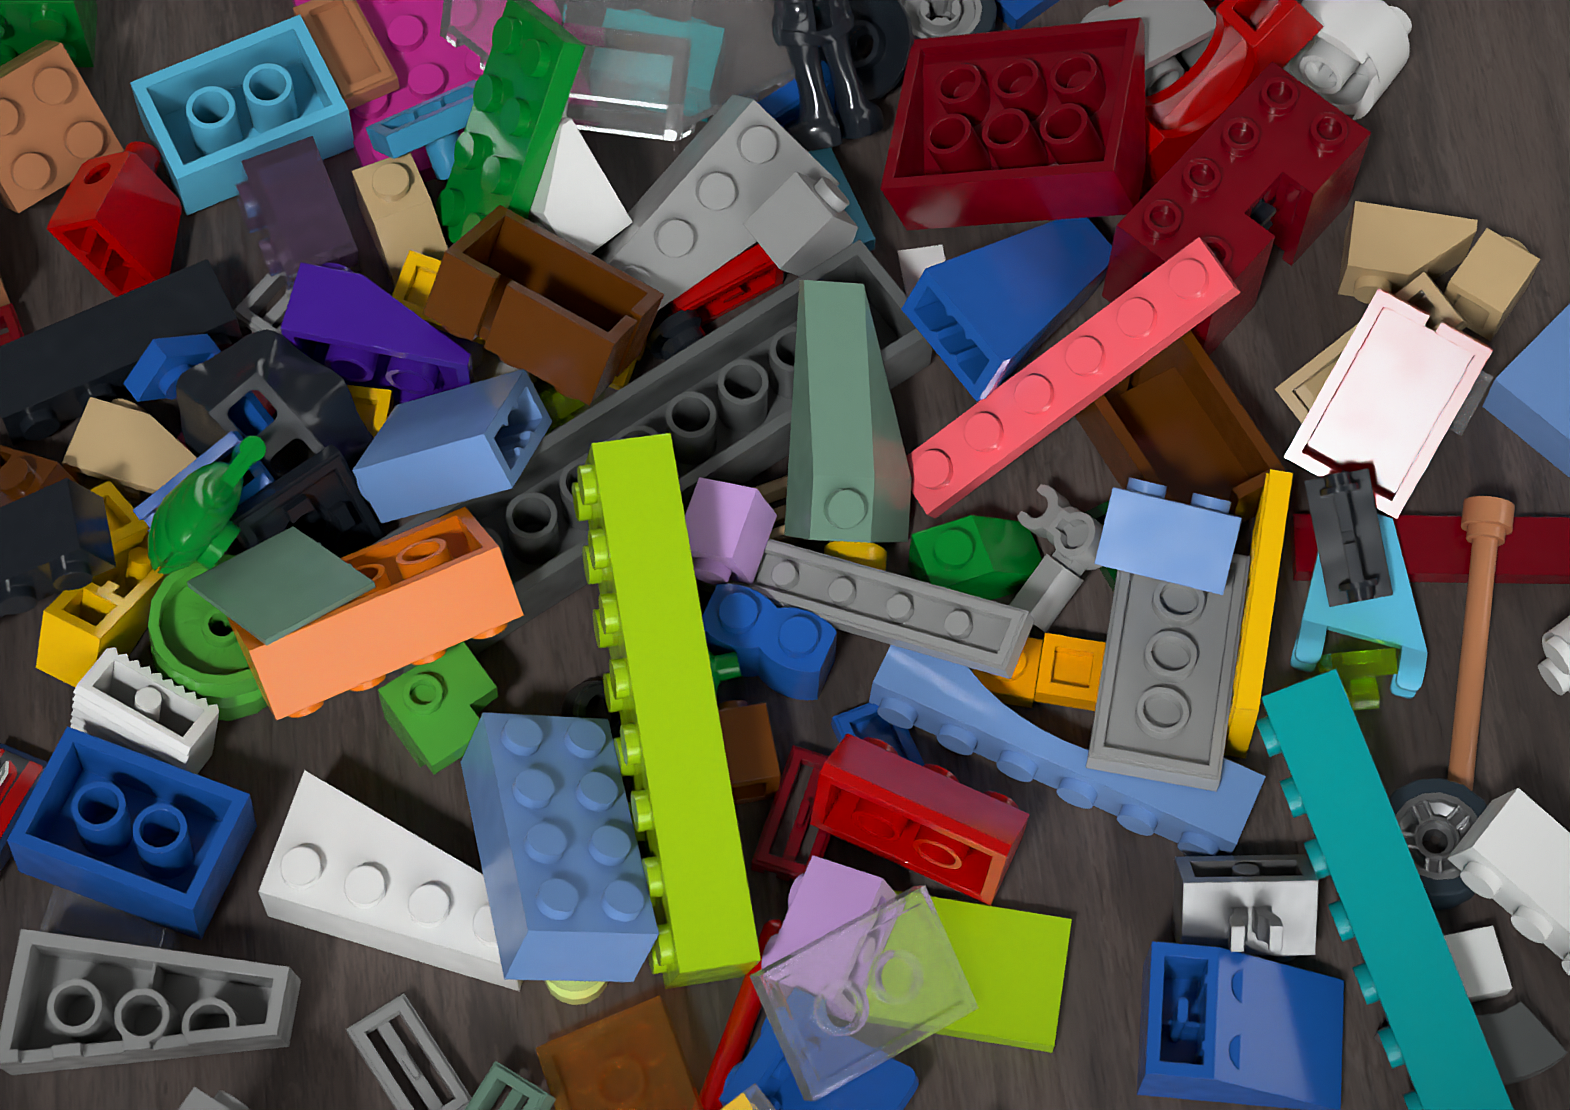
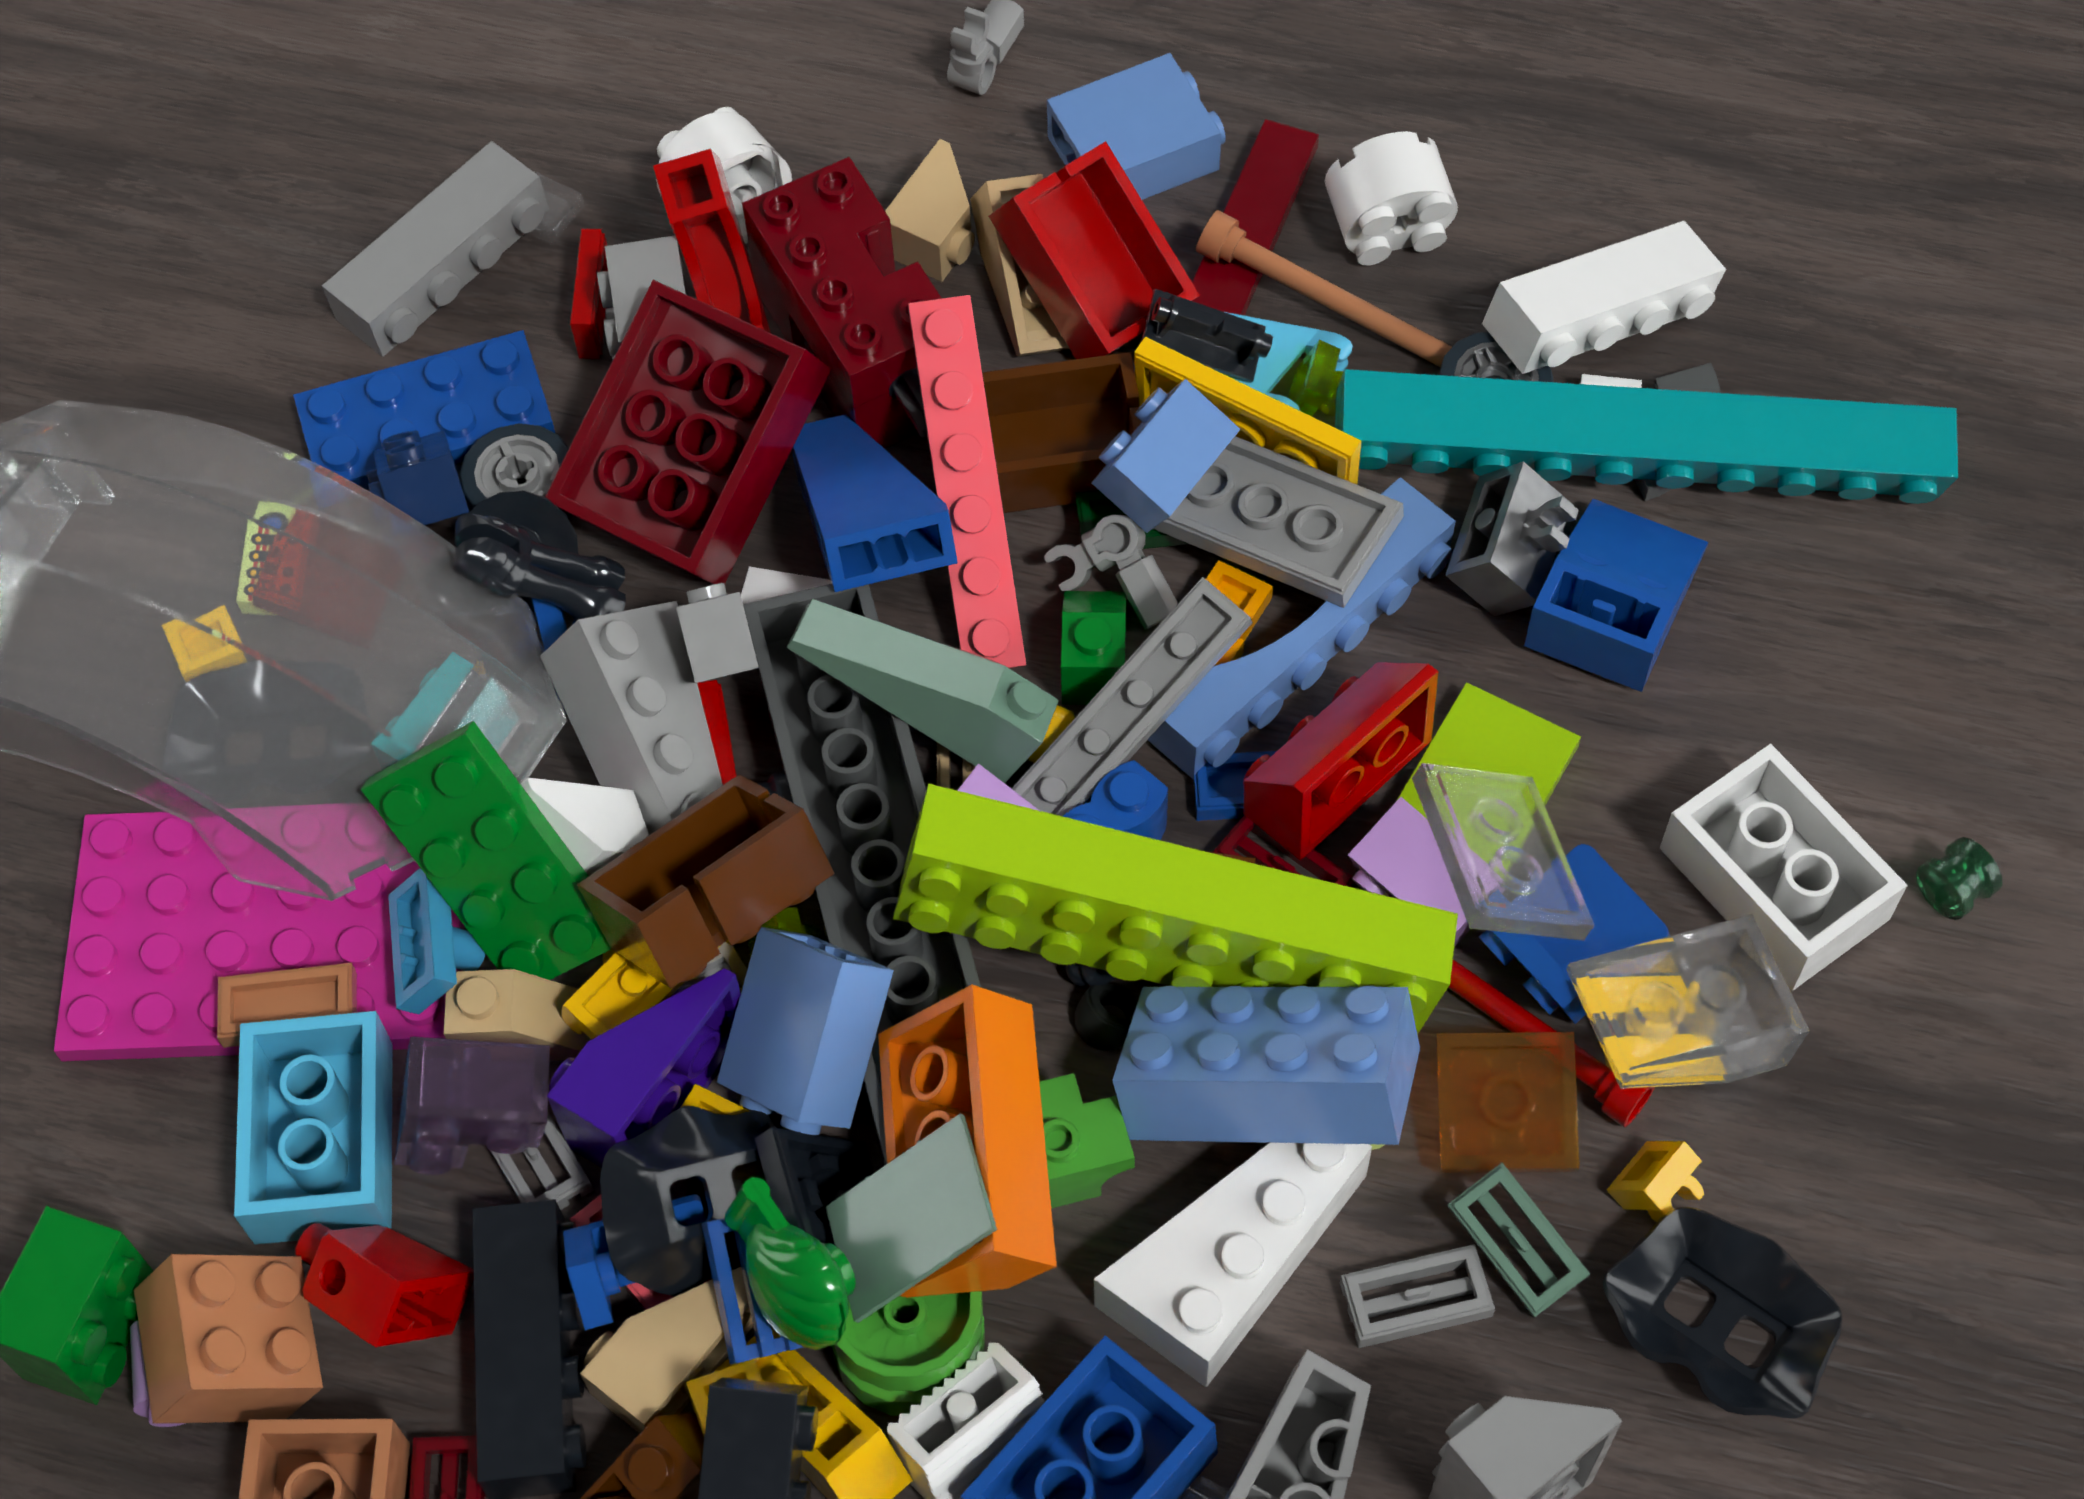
camera: 65 degrees left, 5 degrees down
(1491, 282) = (991, 151): tan brick -> none

